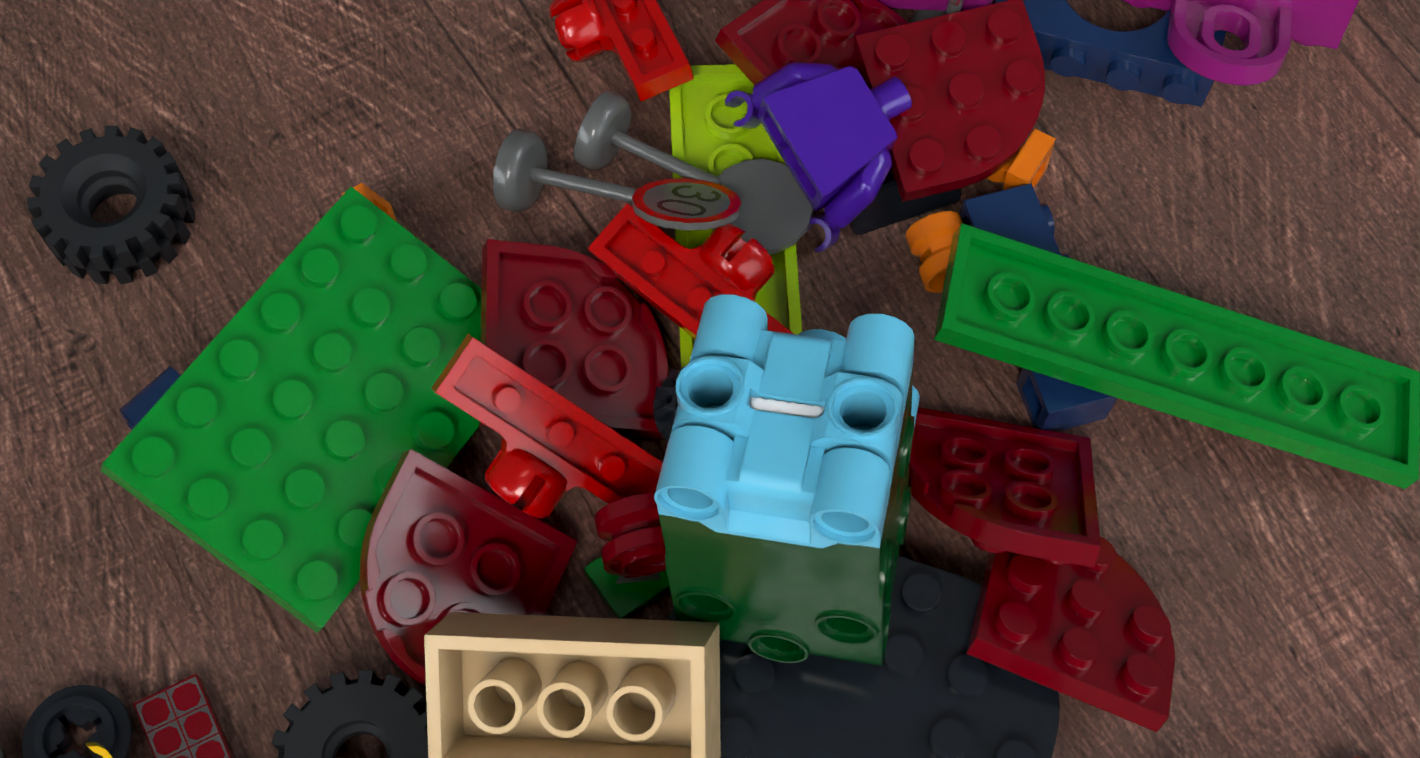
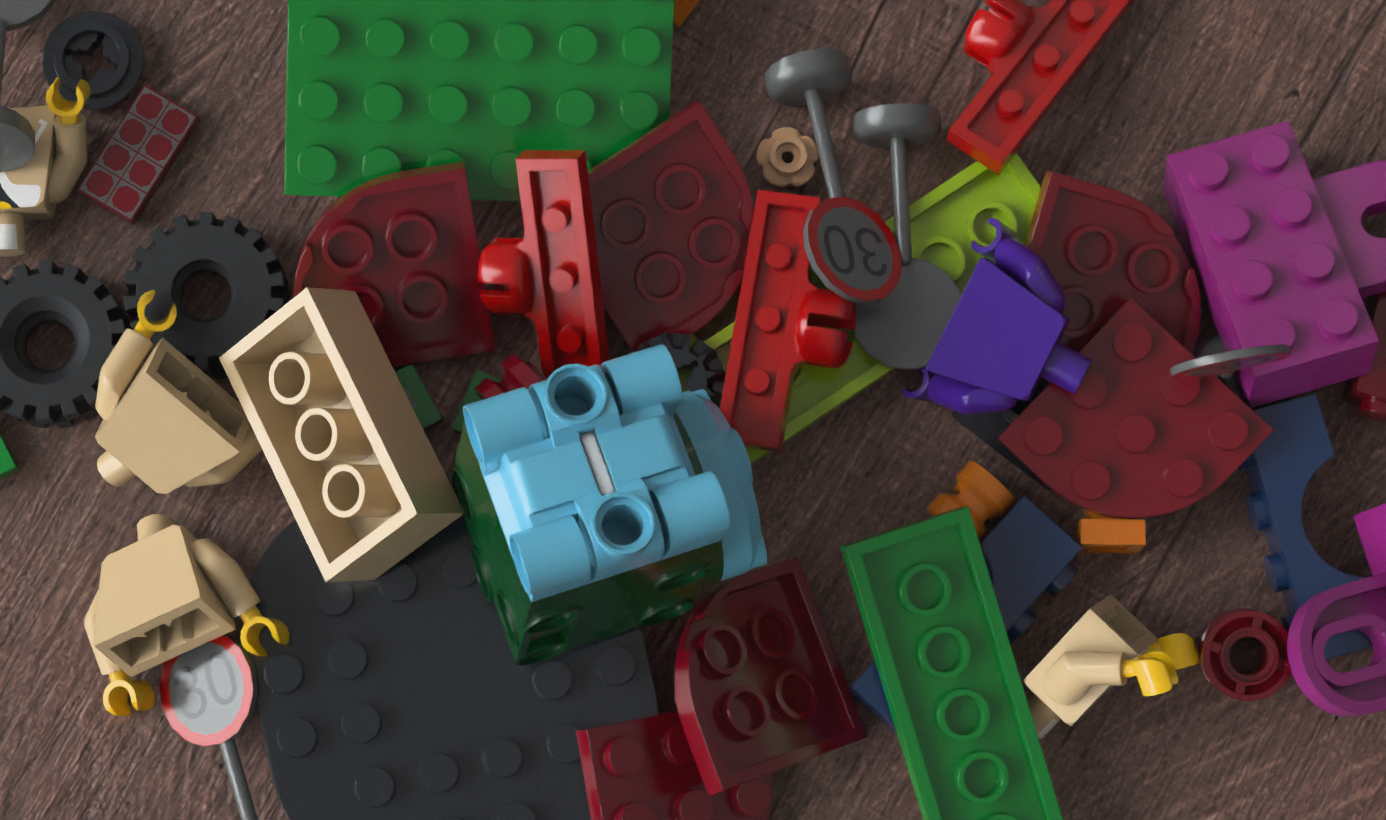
camera: 55 degrees right, 15 degrees up
(573, 214) = (787, 174): none -> light nougat plate
(1132, 211) = (1100, 654): none -> tan torso
(1189, 111) = (1215, 646): none -> dark red wheel

